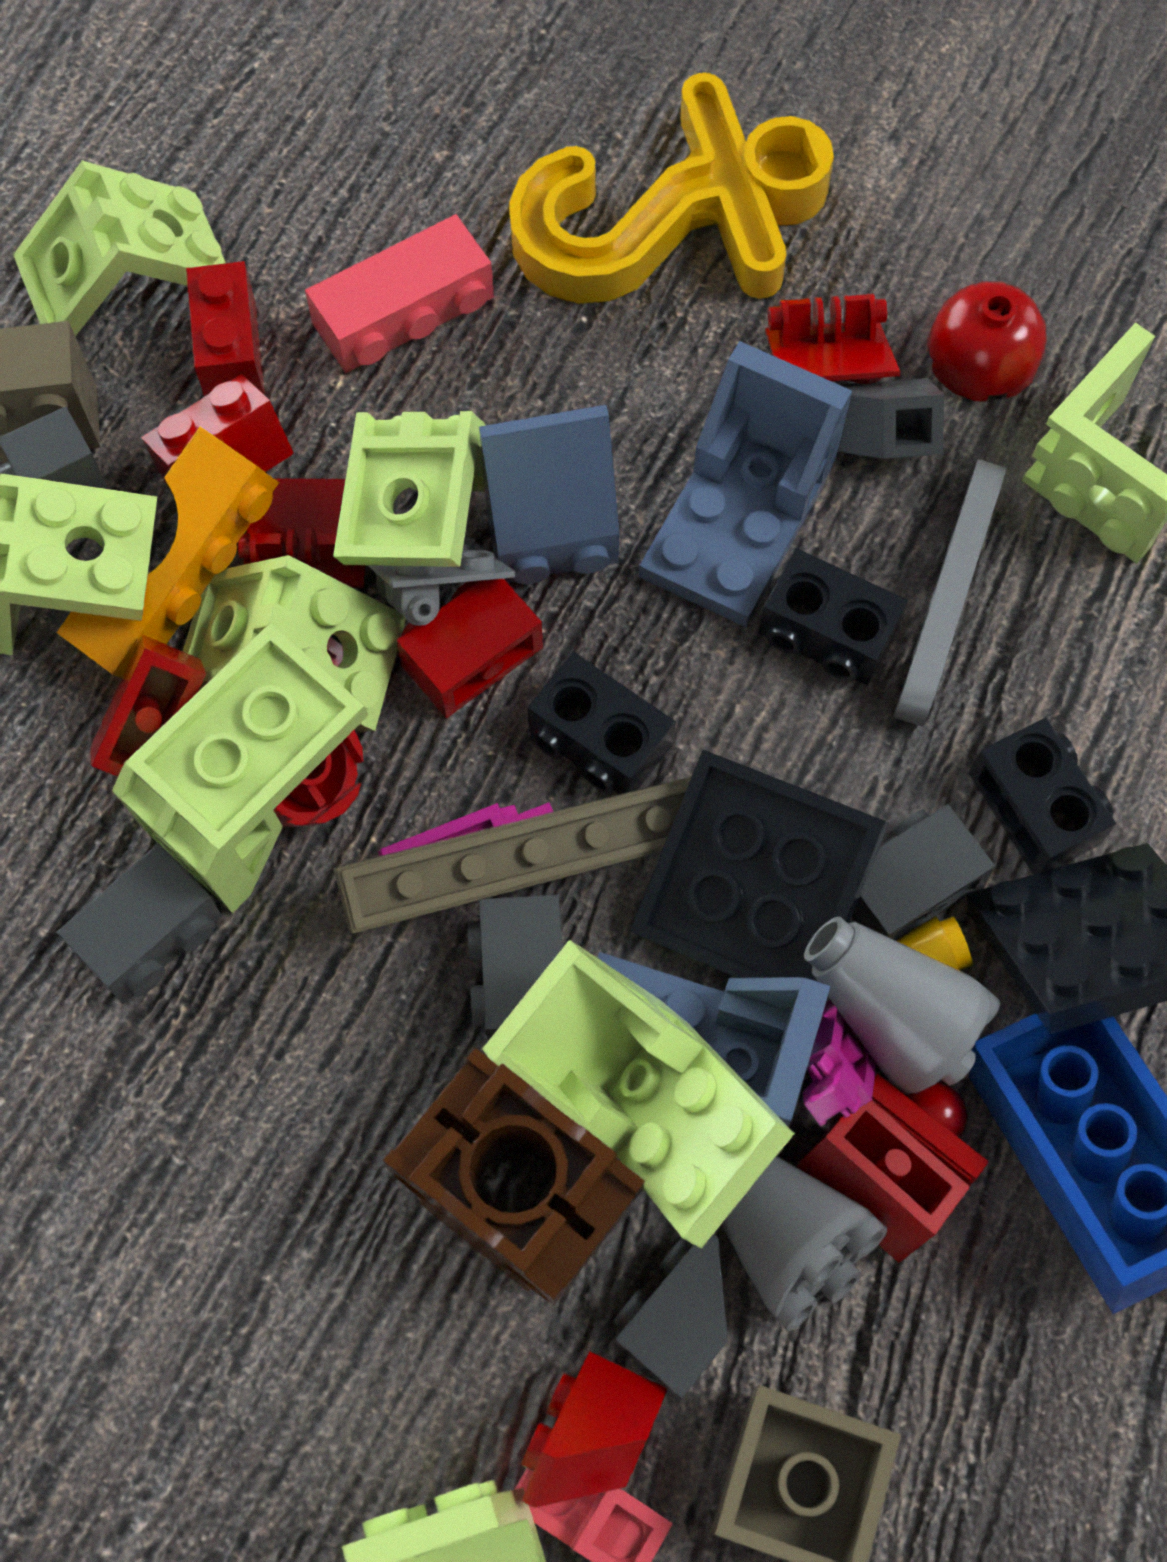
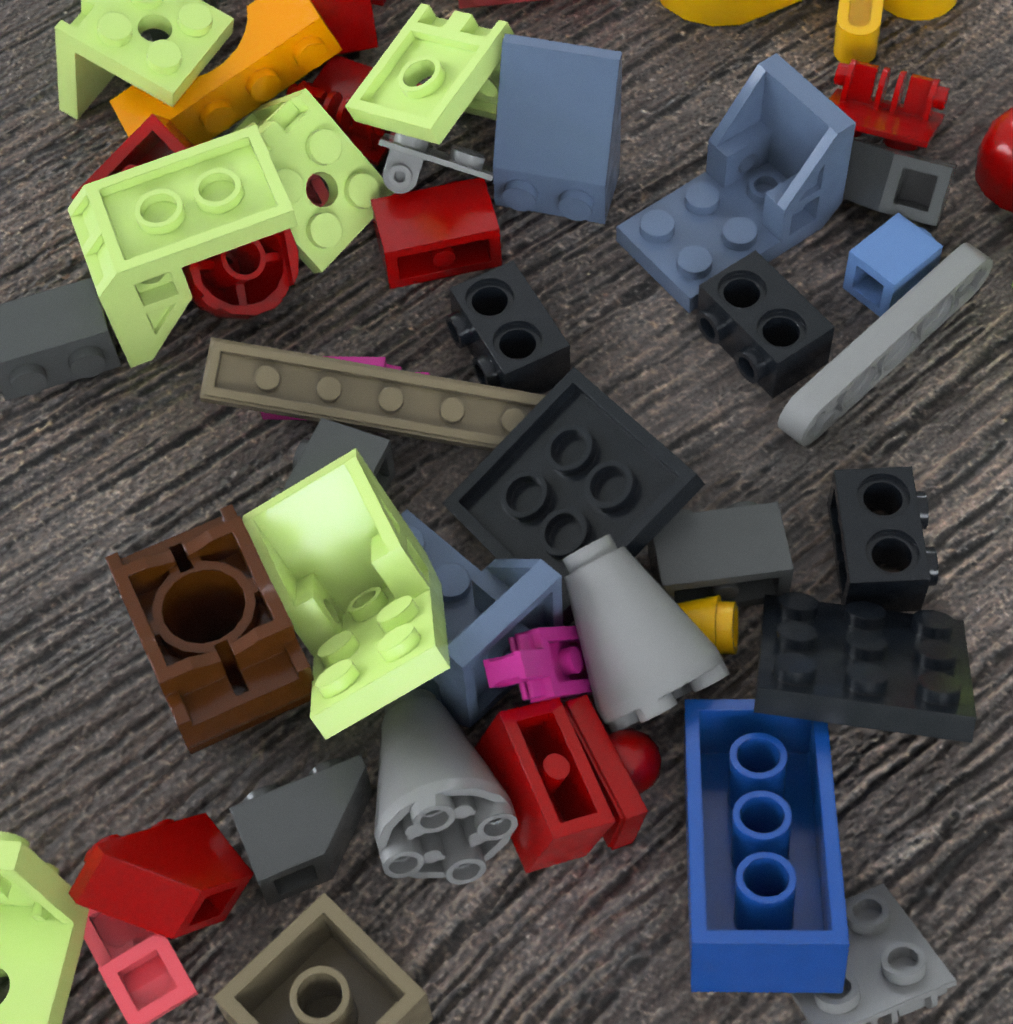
camera: 30 degrees right, 10 degrees down
(917, 508) = (890, 263): none -> medium blue brick

